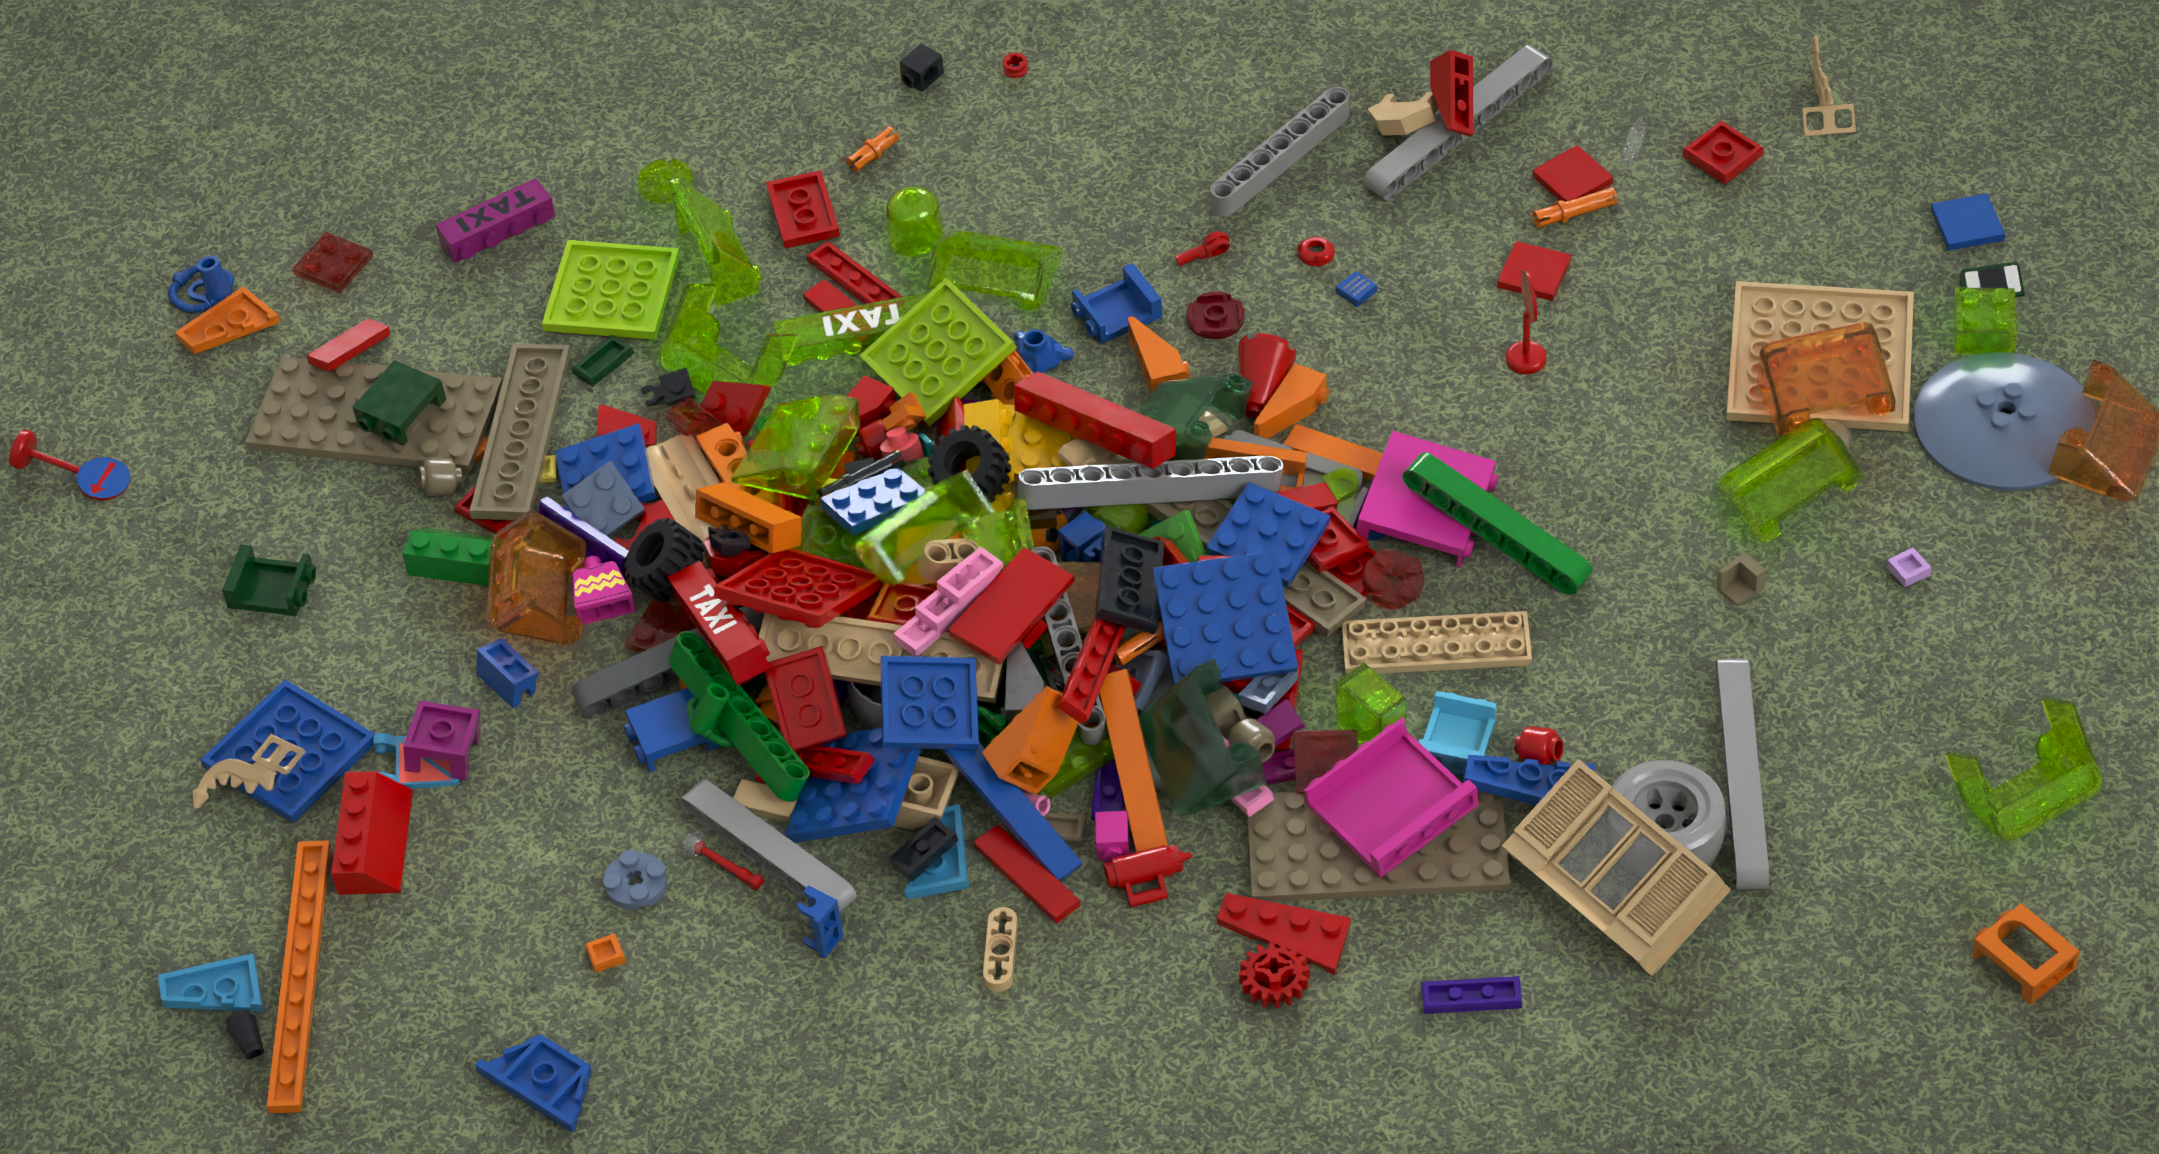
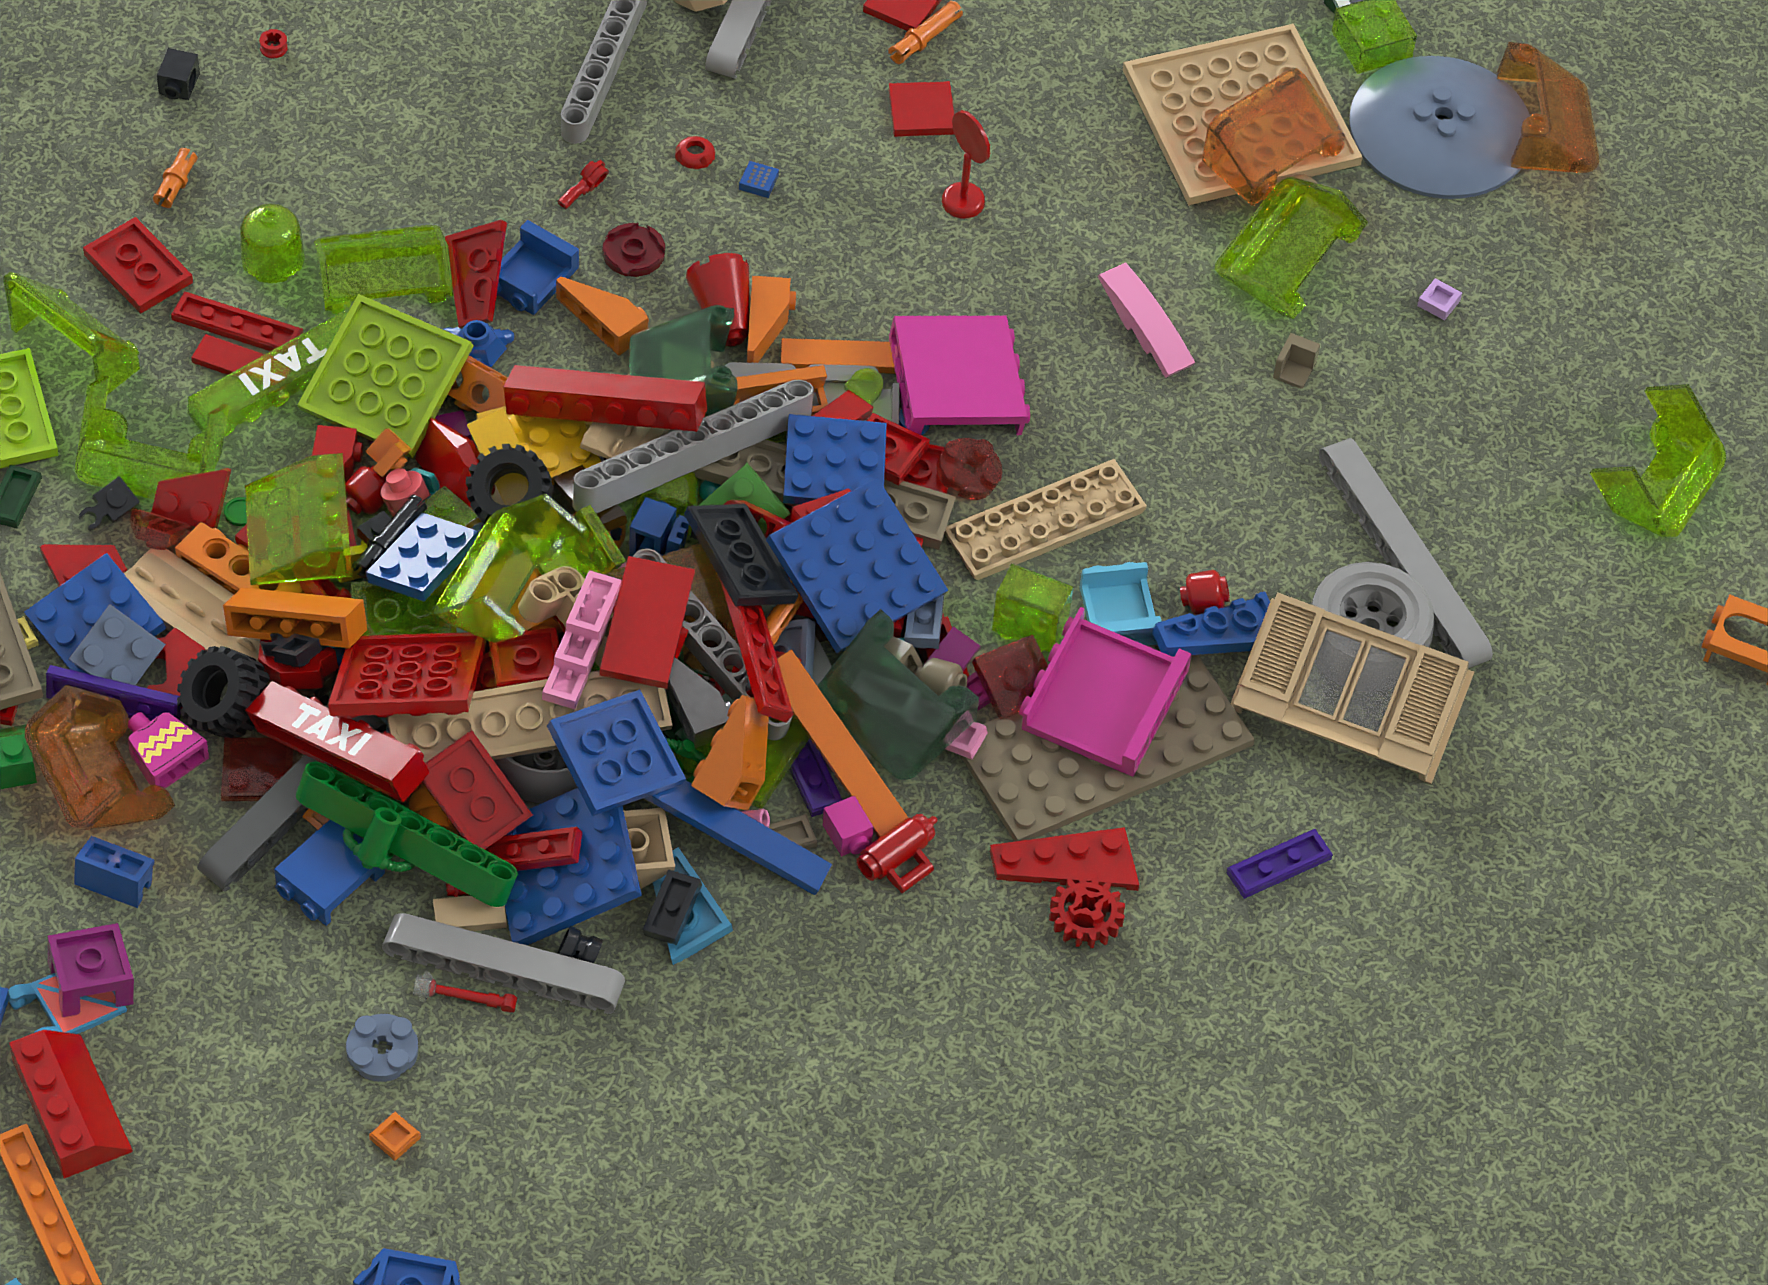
camera: 35 degrees left, 5 degrees up
(824, 921) = (613, 1017): blue hinge -> none
(833, 855) = (580, 946): none -> black wheel
(994, 939) = (802, 969): tan beam -> none
(1027, 874) = (781, 895): red tile -> none
(1063, 289) = (476, 270): none -> red wing
(1497, 523) = (1046, 378): green beam -> none
(1625, 504) = (1147, 319): none -> bright pink slope

